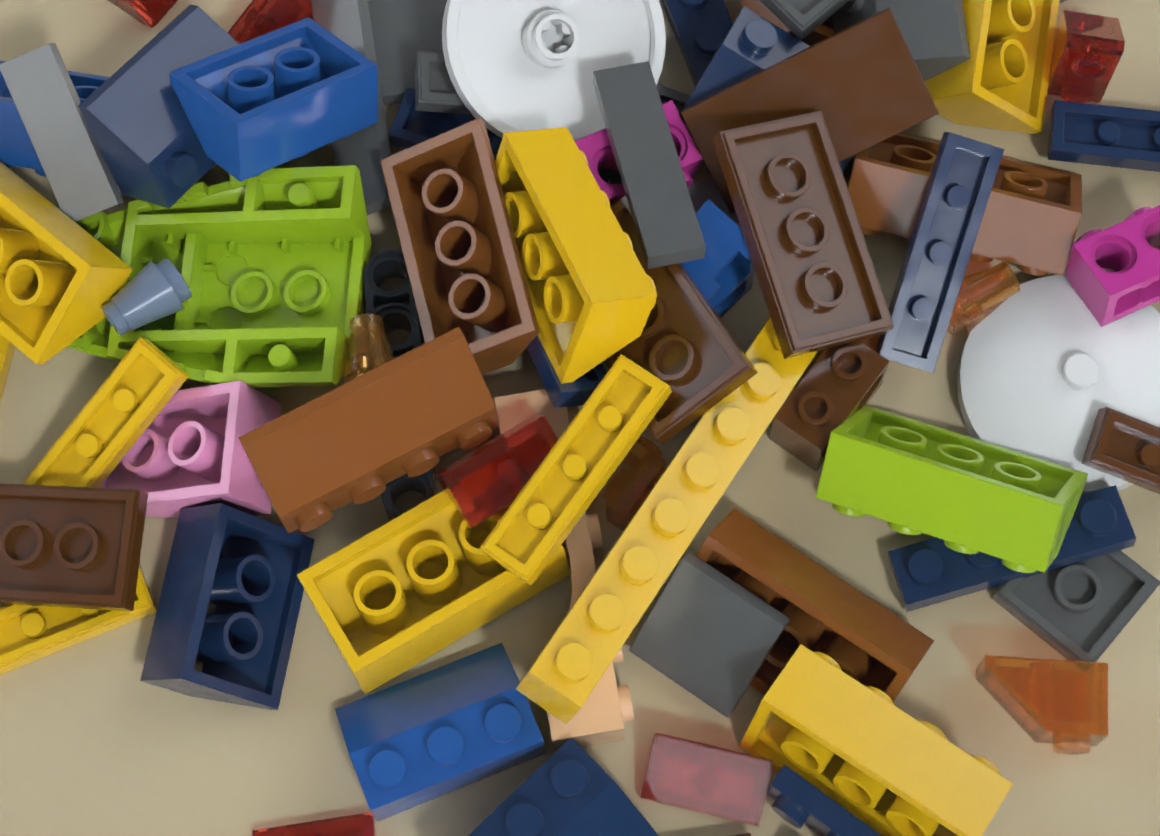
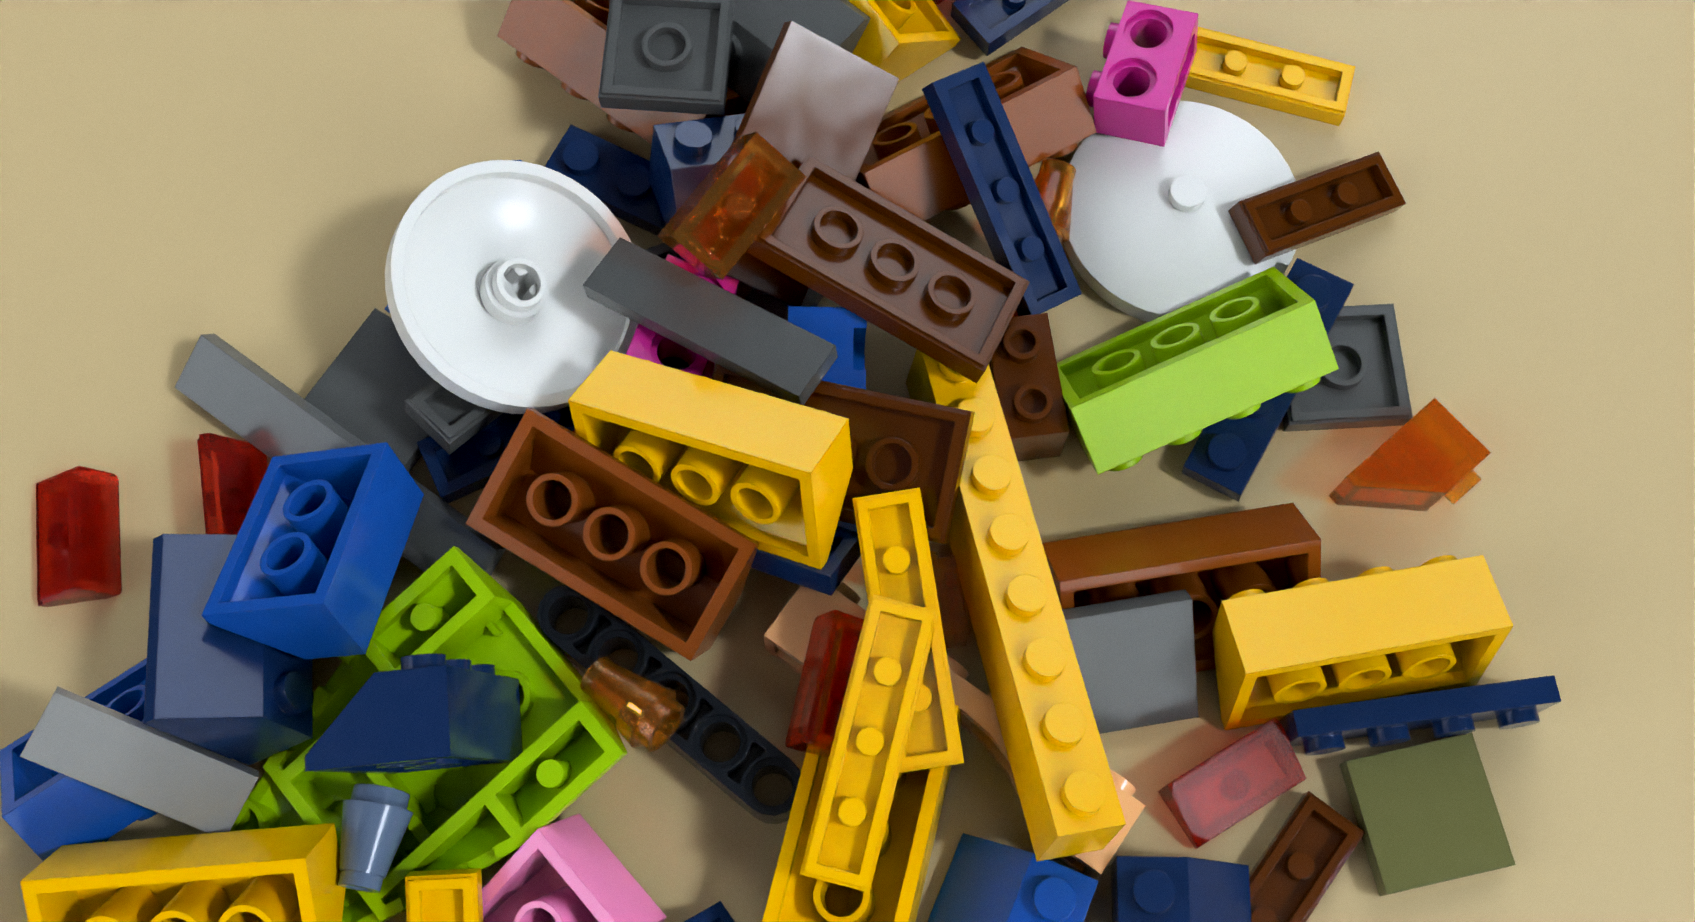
camera: 50 degrees left, 0 degrees up
(235, 252) = (424, 720): none -> dark blue slope
(372, 432) = (707, 764): dark orange slope -> none
(480, 512) = (869, 743): none -> yellow tile
(727, 98) = (732, 206): none -> clear orange brick

